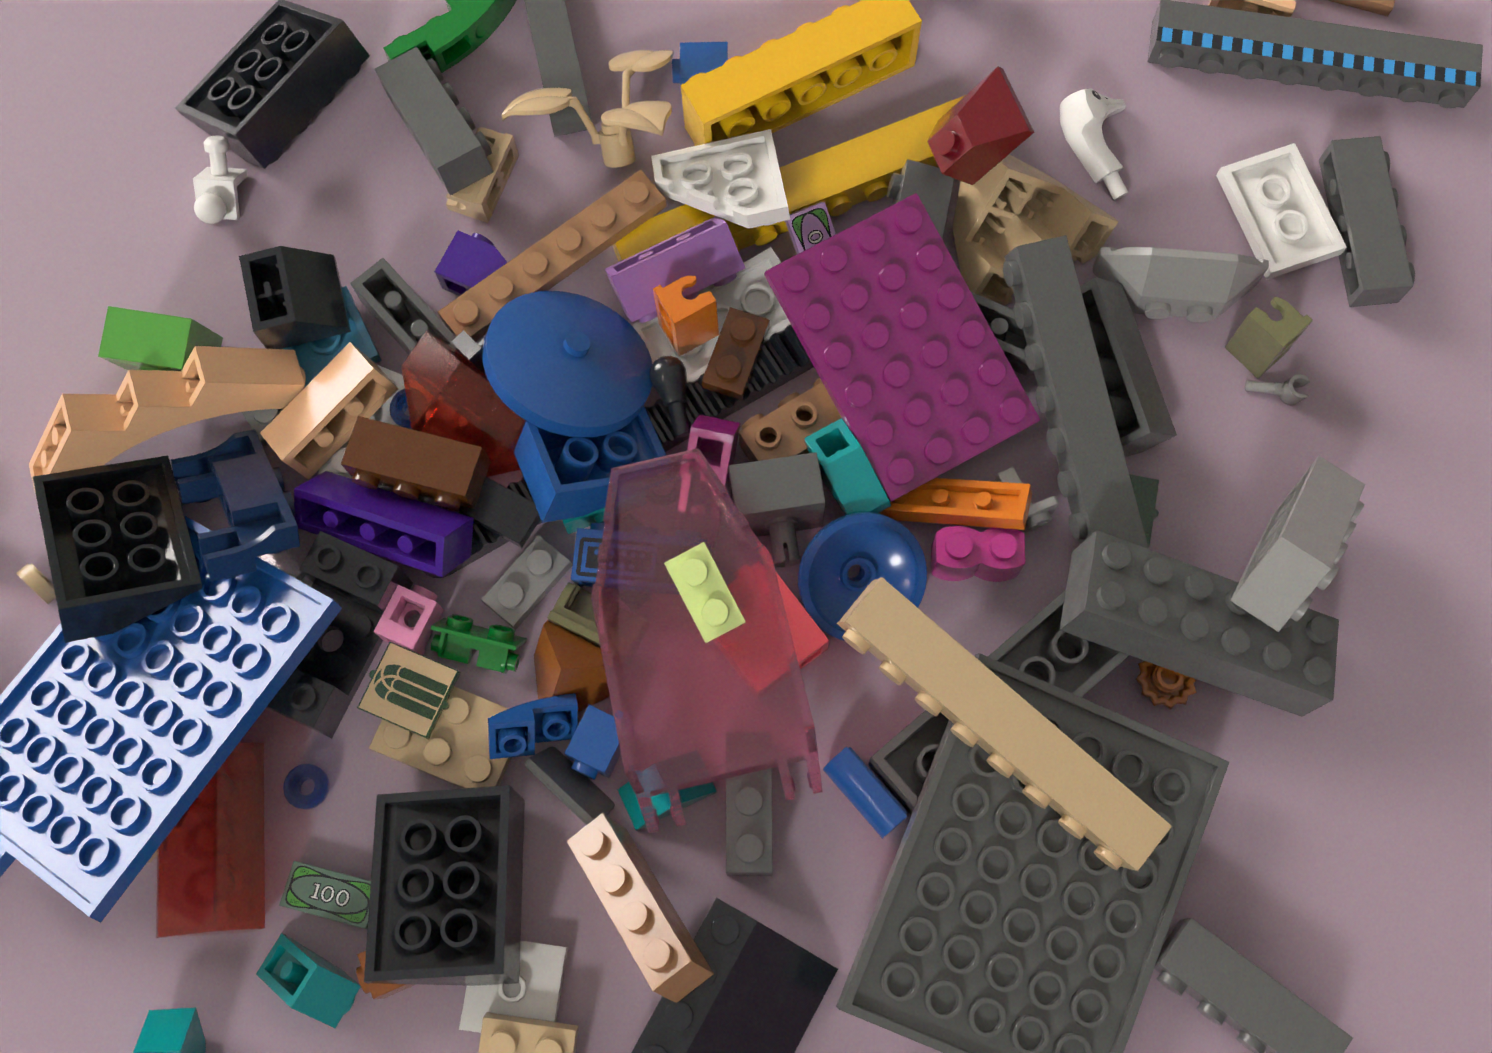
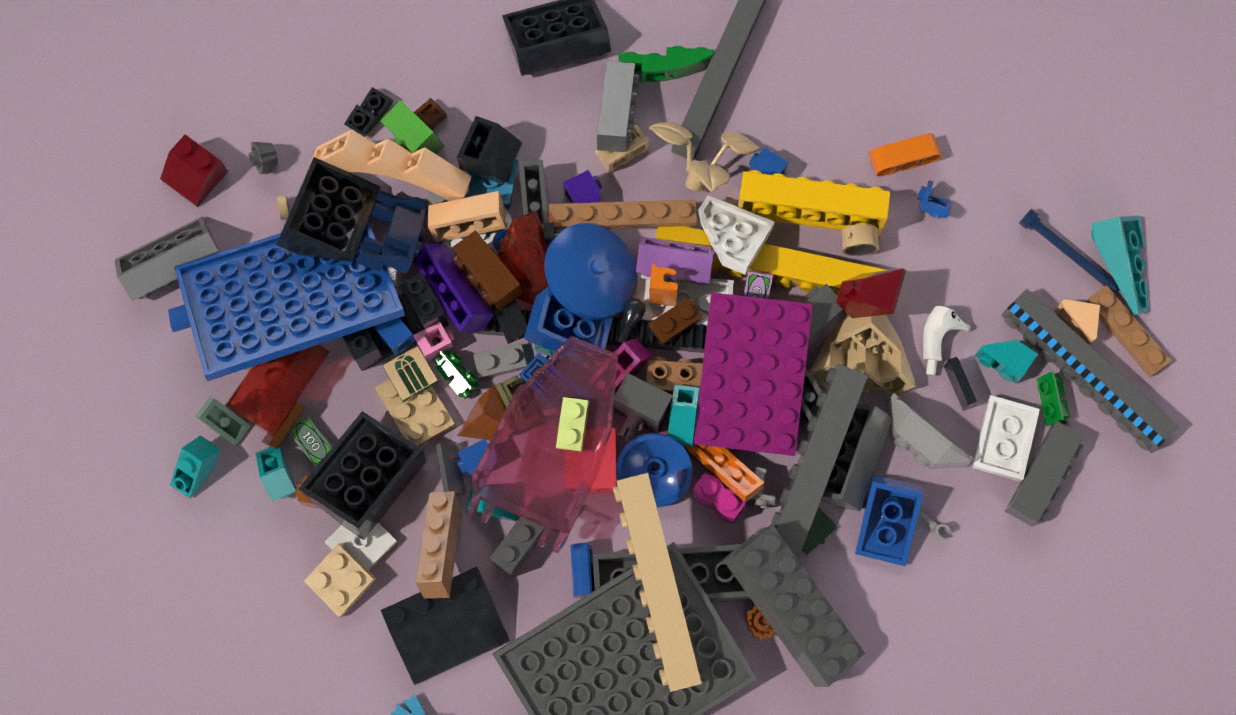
camera: 35 degrees right, 0 degrees up
(74, 360) = (369, 113): none -> black slope
(169, 963) = (222, 421): none -> sand green slope
(170, 301) = (431, 113): none -> reddish brown tile
(217, 185) = (493, 69): white piece -> none
(275, 916) = (275, 440): none -> reddish brown tile
(297, 777) = (332, 378): clear blue plate -> none
(346, 649) = (395, 335): none -> blue brick
(542, 720) = (446, 426): blue slope -> none
(898, 81) = (860, 240): none -> tan piece
(1169, 180) = (960, 383): none -> black tile
(1205, 107) = (1007, 358): none -> teal slope
(1222, 419) = (889, 520): none -> blue slope
(1264, 341) = (941, 499): olive hinge -> none
(1296, 121) = (1050, 390): none -> green hinge
(1301, 545) = (869, 602): light grey brick -> none

